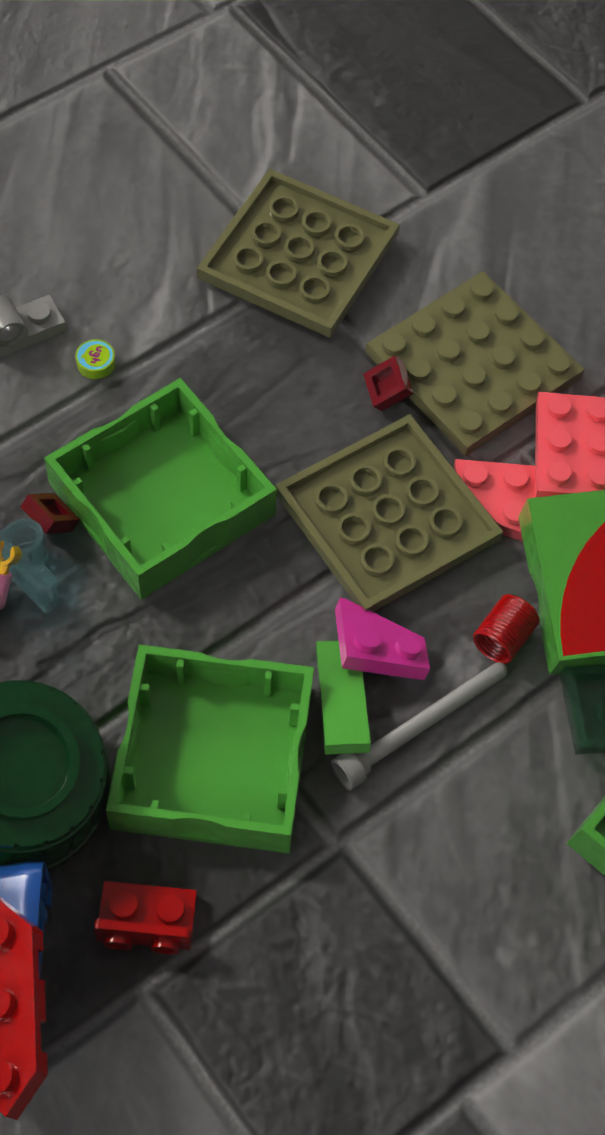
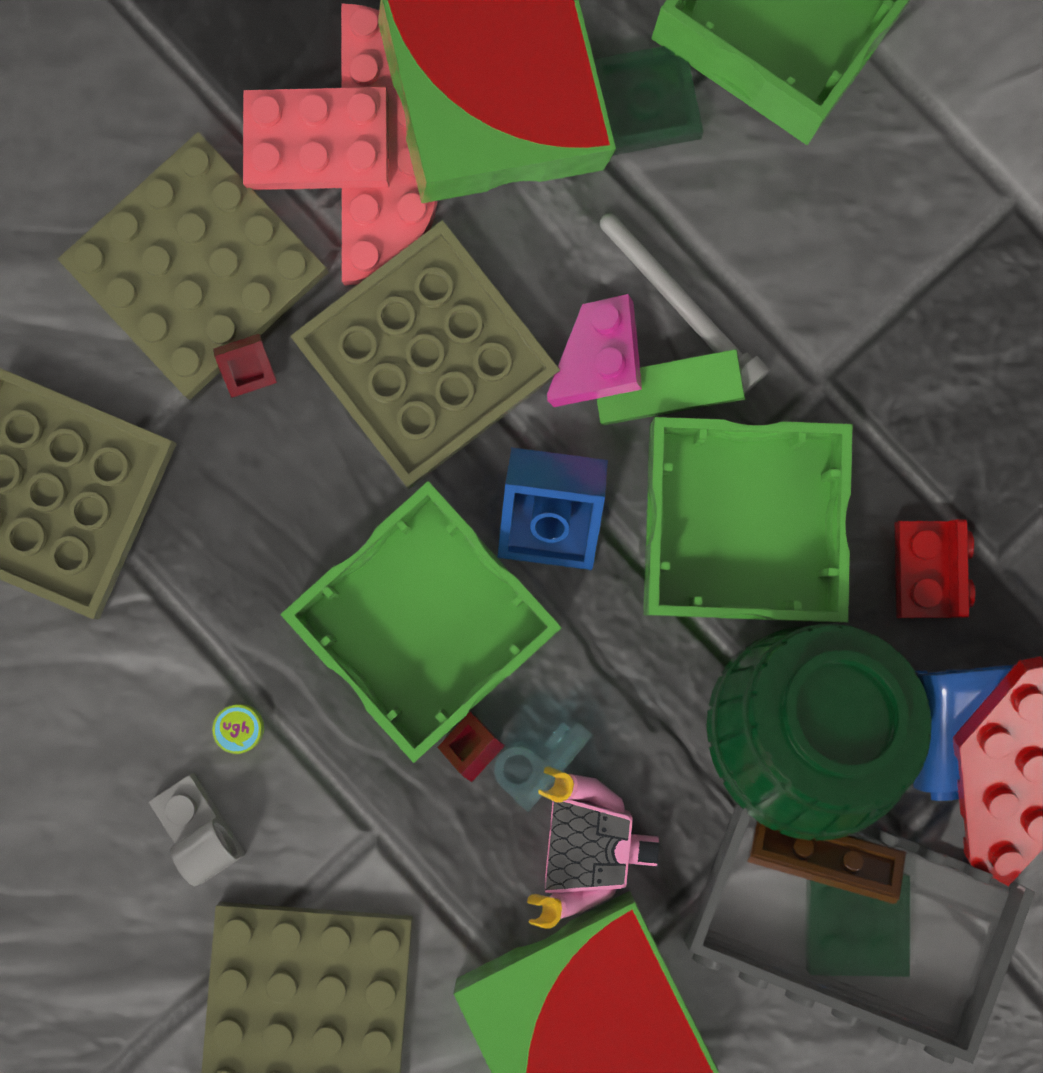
camera: 90 degrees left, 25 degrees up
(245, 592) = (552, 508): none -> blue slope
(506, 628) = (565, 213): red piece -> none

